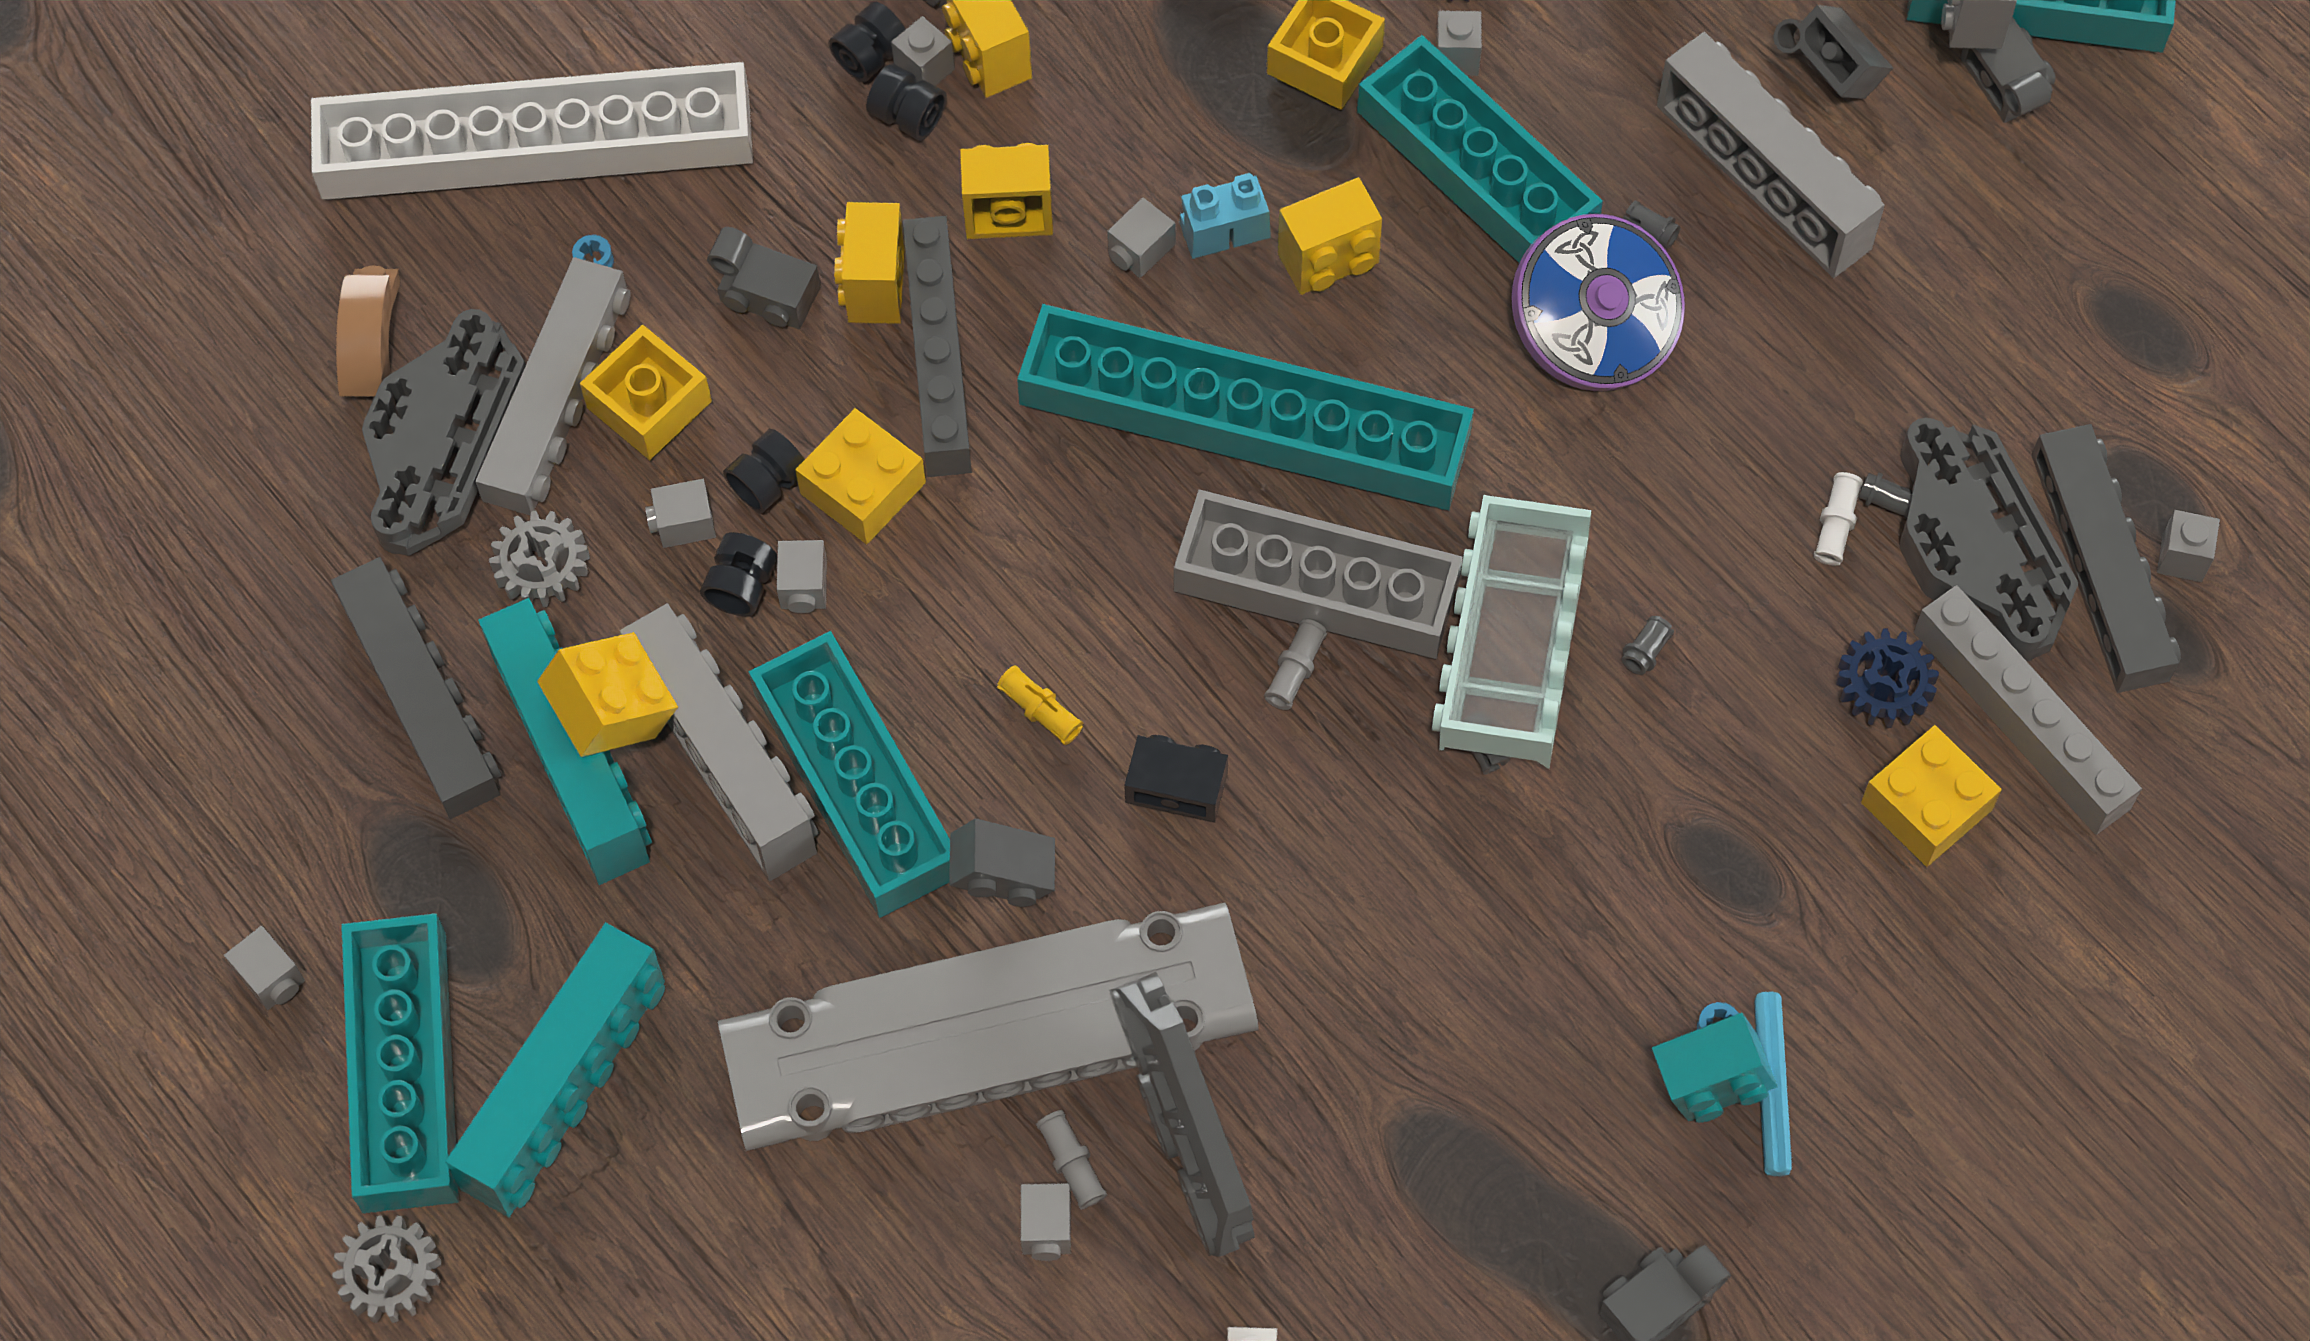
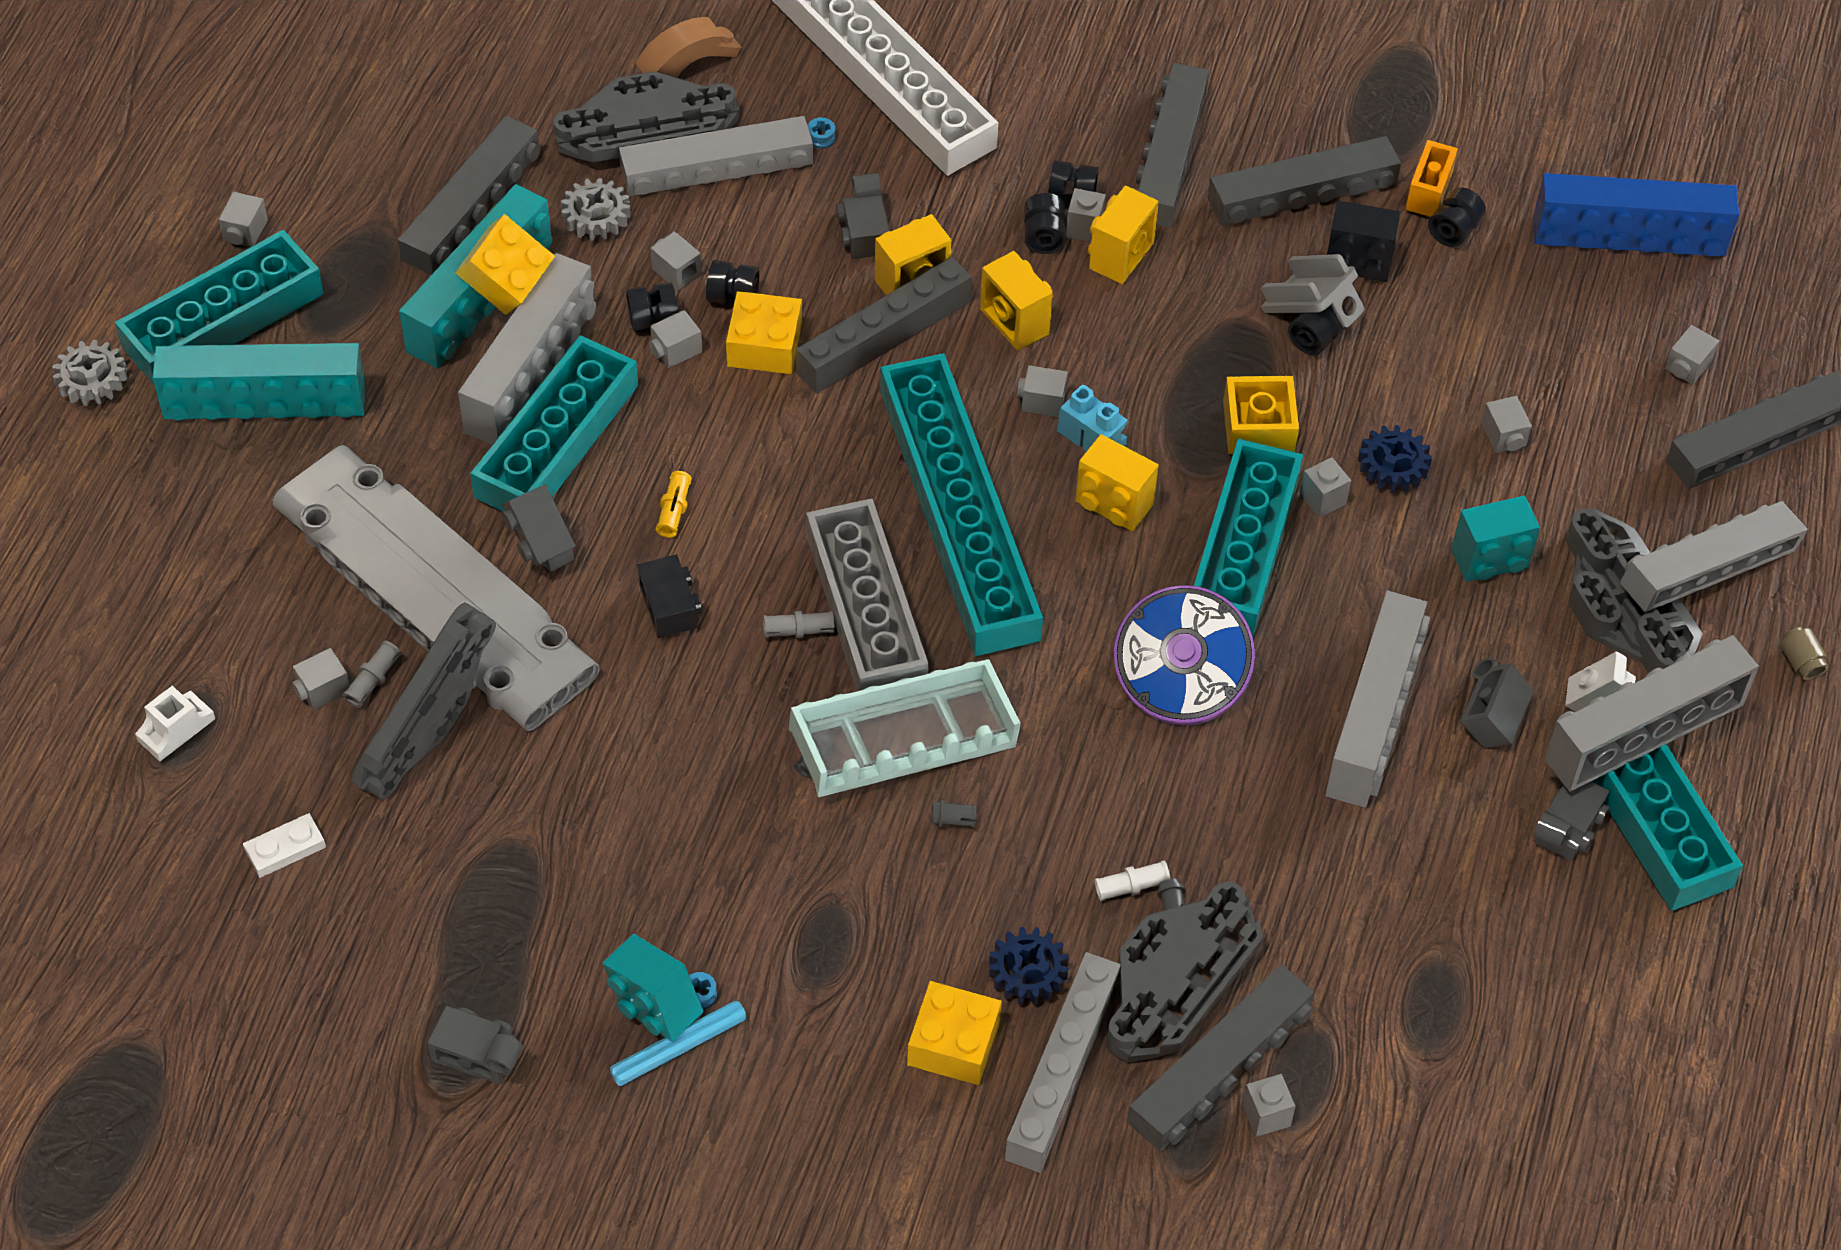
camera: 55 degrees right, 10 degrees down
(646, 392) = (741, 198): yellow brick -> none
(1662, 229) = (1277, 673): dark grey pin -> none

